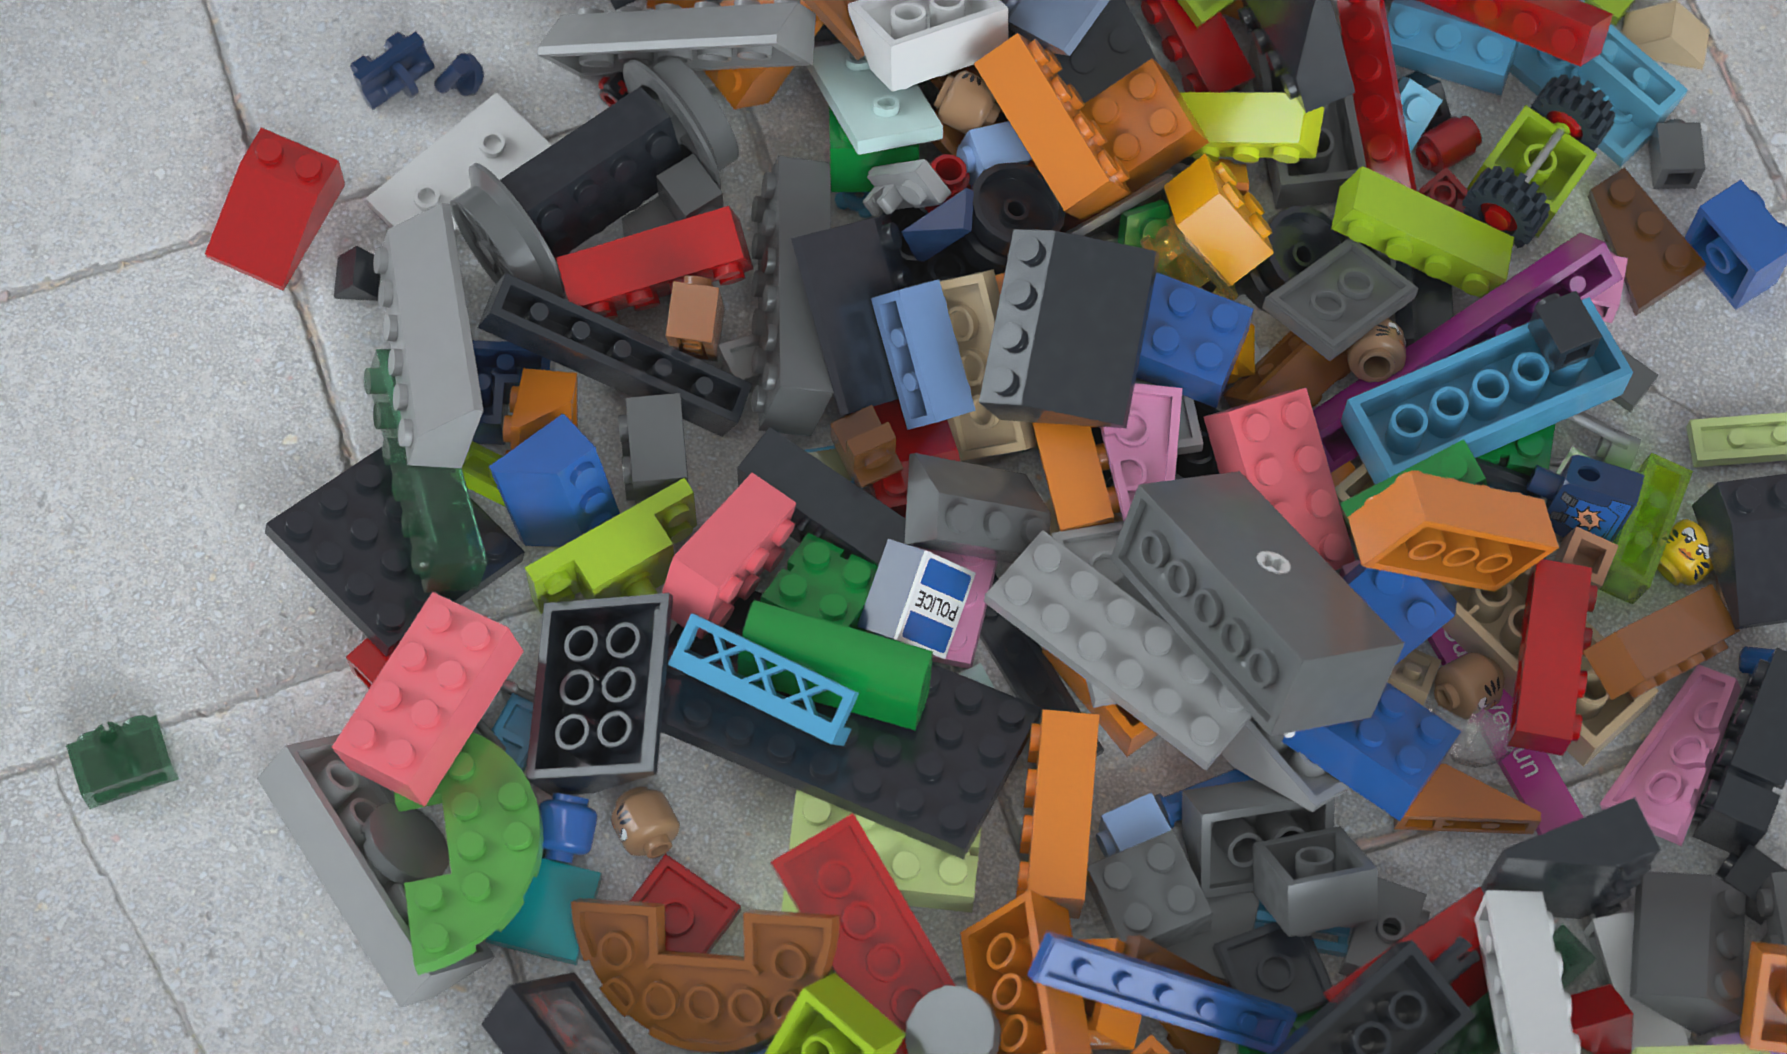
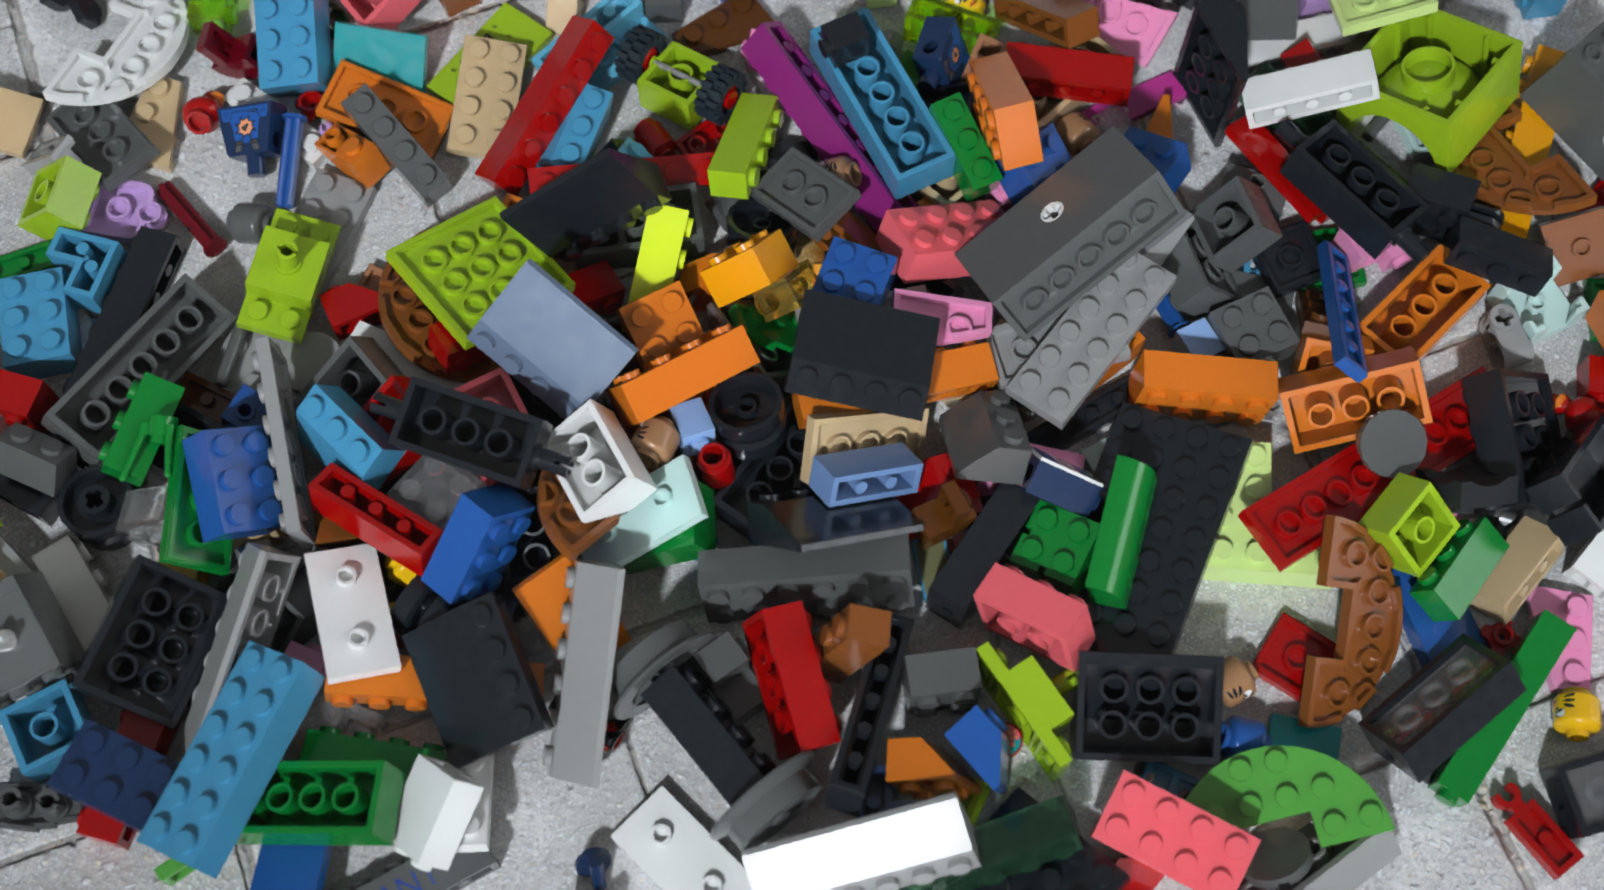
camera: 90 degrees left, 0 degrees up
(764, 696) = (1151, 579): dark azure fence -> none
(904, 186) = (725, 493): light grey plate -> none
(941, 226) = (757, 459): dark blue slope -> none

